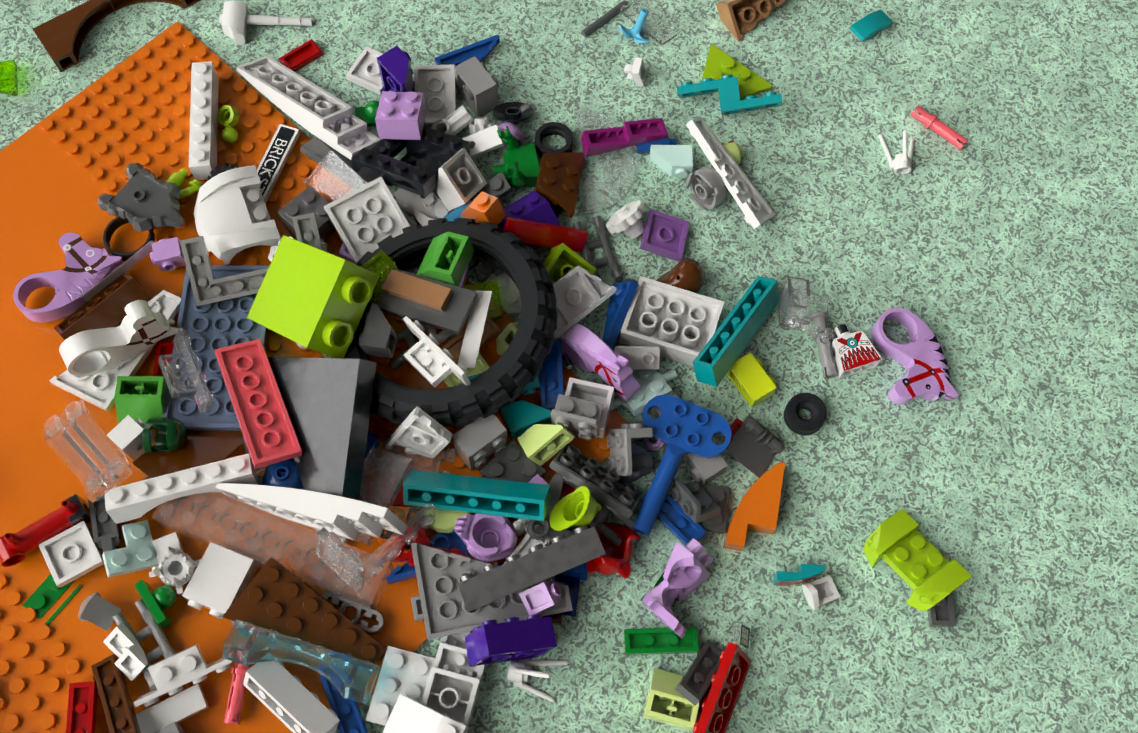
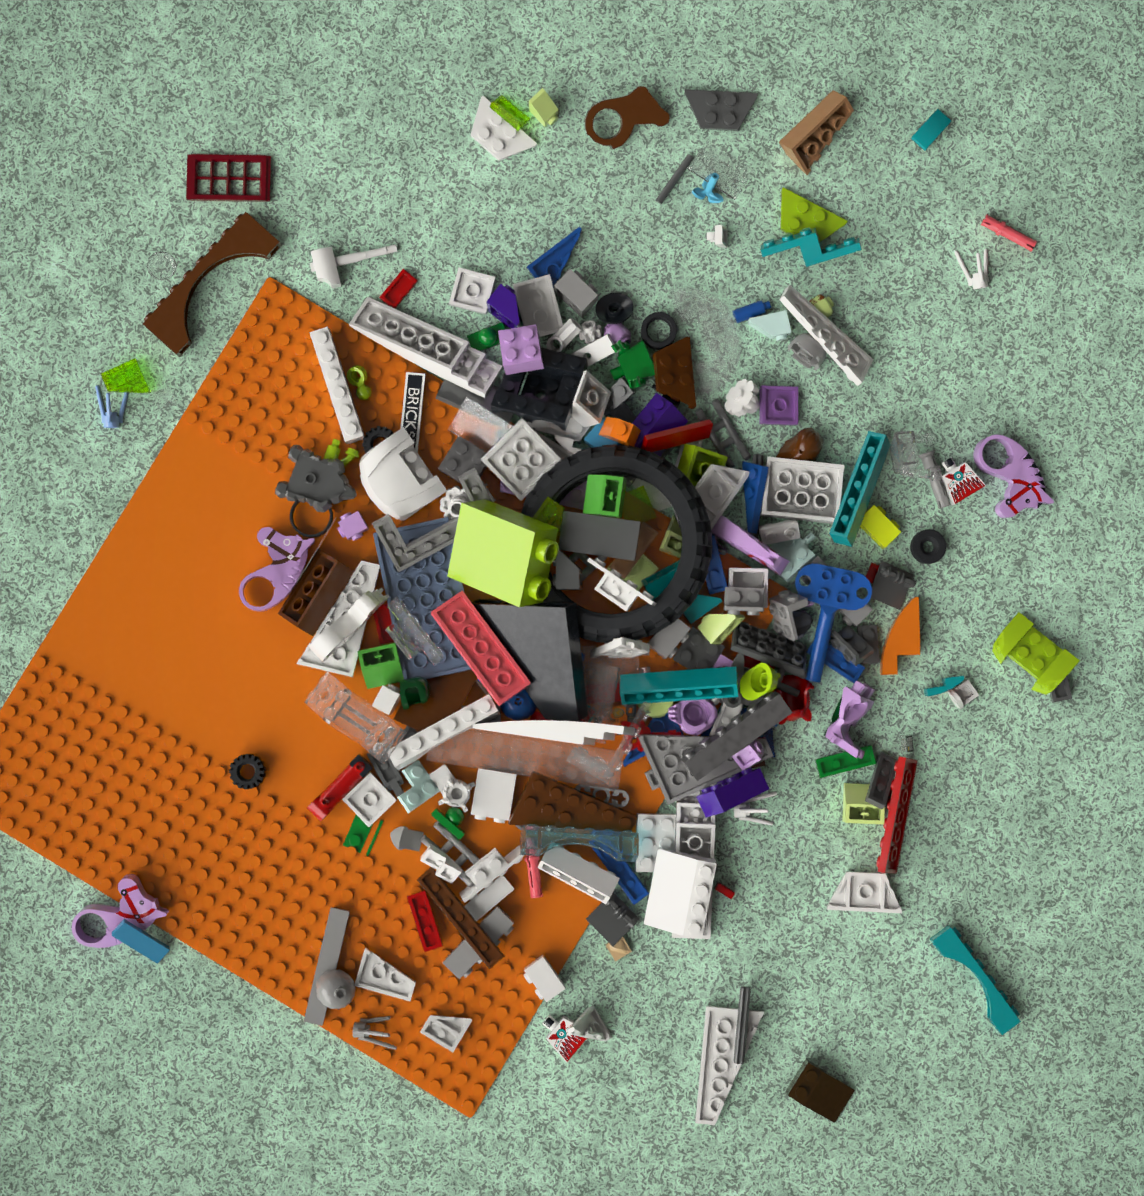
camera: 10 degrees left, 20 degrees up
(417, 290) = (590, 530): medium nougat tile -> none
(474, 330) = (646, 553): white sticker -> none
(630, 134) = (722, 314): magenta slope -> none

